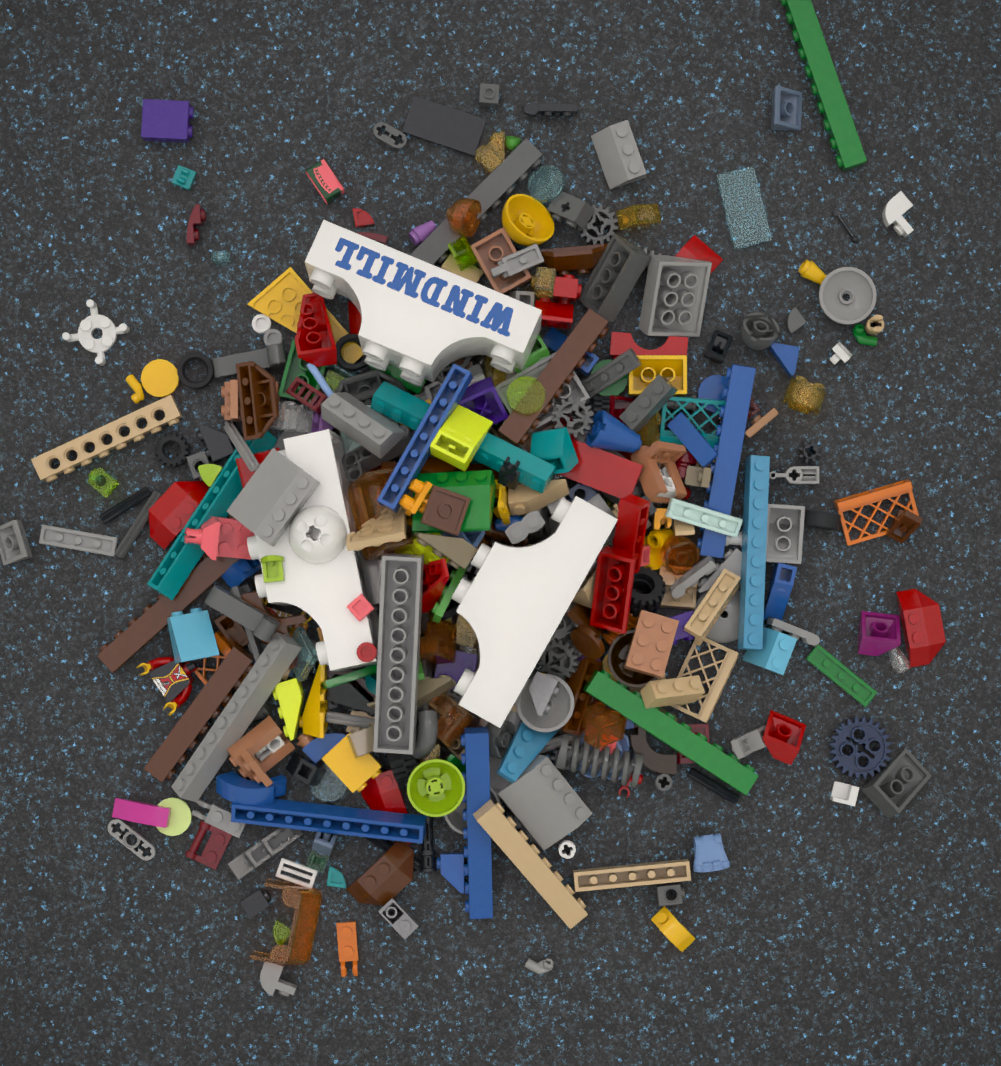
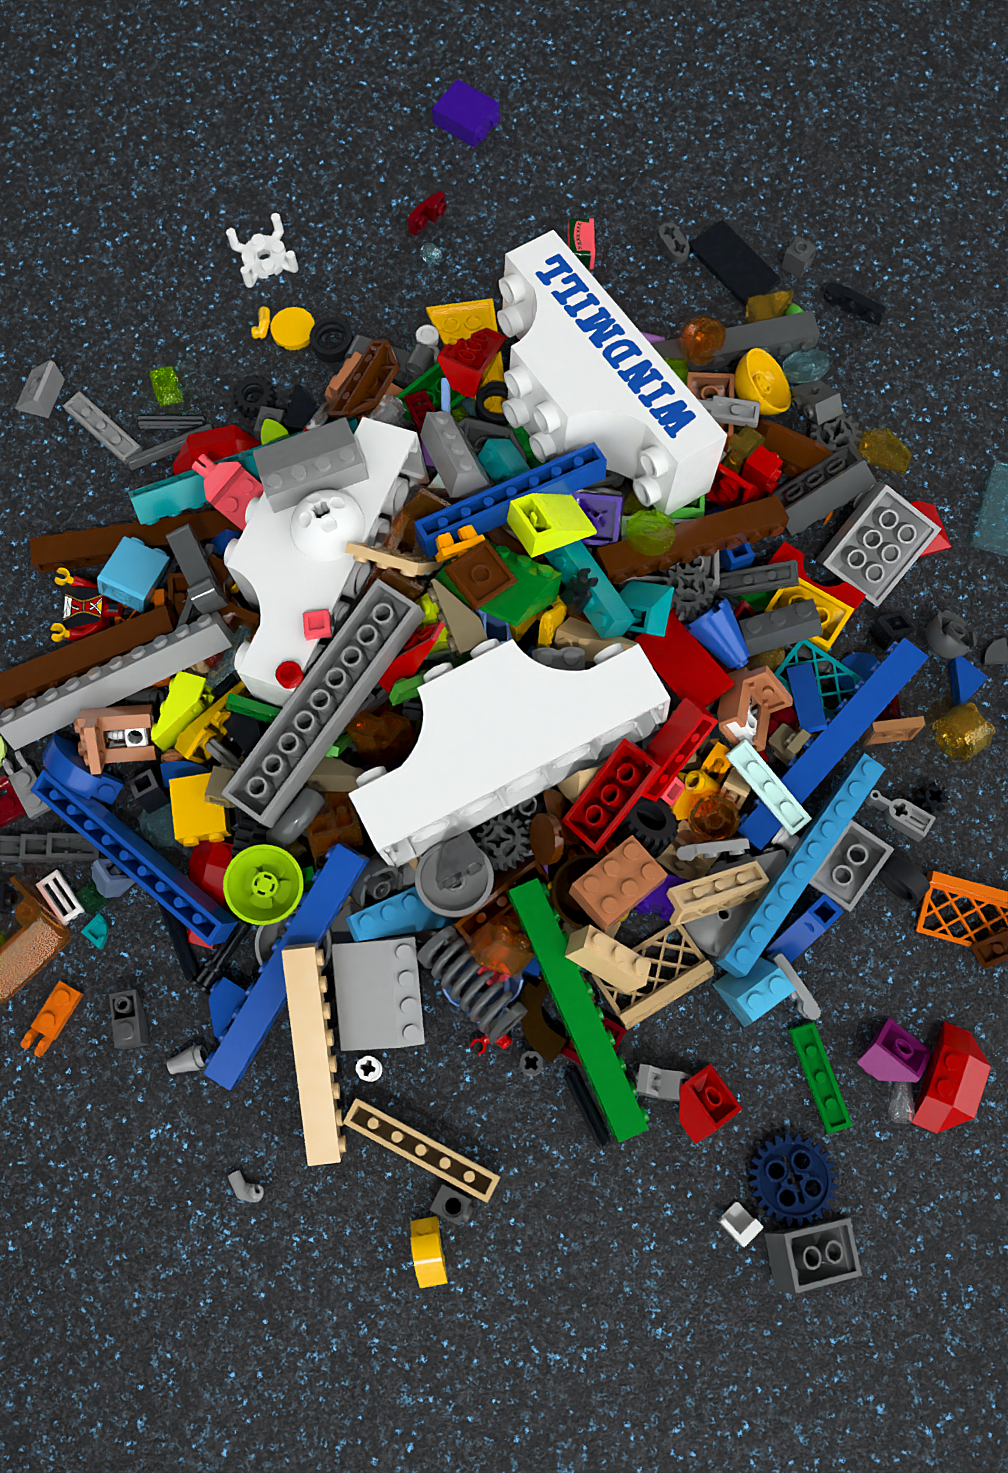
camera: 40 degrees right, 15 degrees down
(43, 462) = (190, 342): tan brick -> none
(184, 177) = (447, 171): teal tile -> none
(272, 568) = (256, 531): lime tile -> none
(385, 876) = (148, 960): reddish brown wedge -> none
(452, 916) = (188, 1060): none -> light grey cone
(618, 155) = (900, 383): light grey slope -> none
(709, 854) = (530, 1187): medium blue piece -> none

